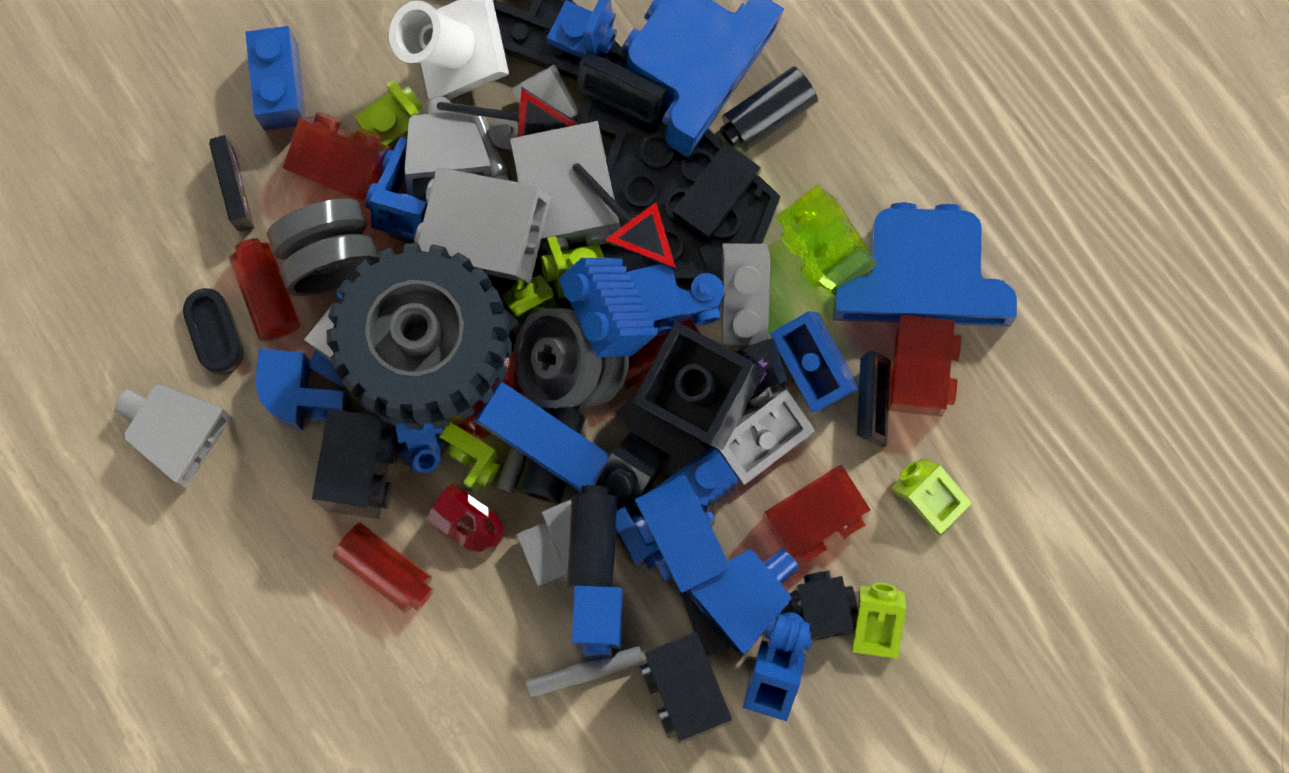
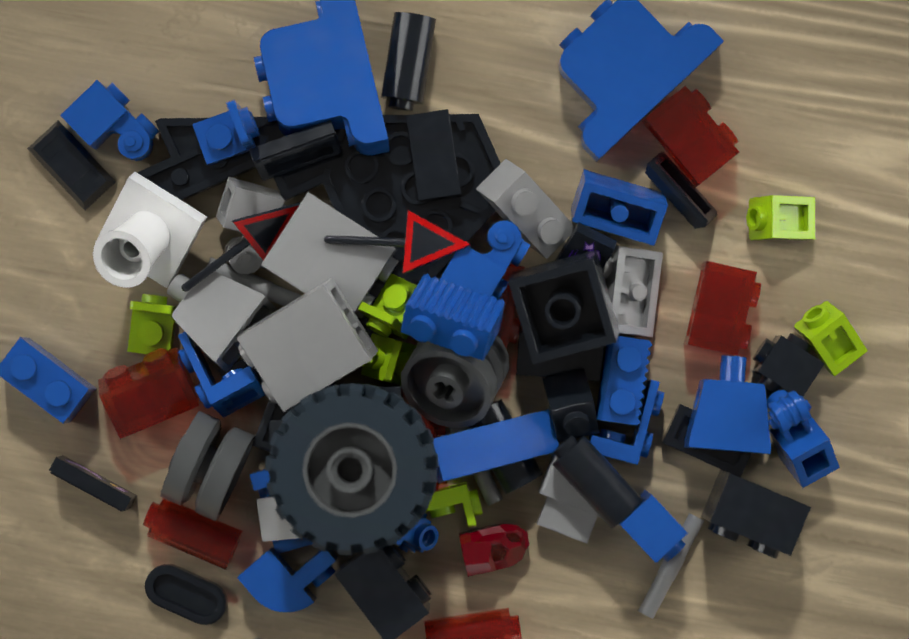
camera: 45 degrees left, 10 degrees up
(682, 533) = (653, 418): blue brick -> none
(825, 240) = (542, 116): clear neon green brick -> none

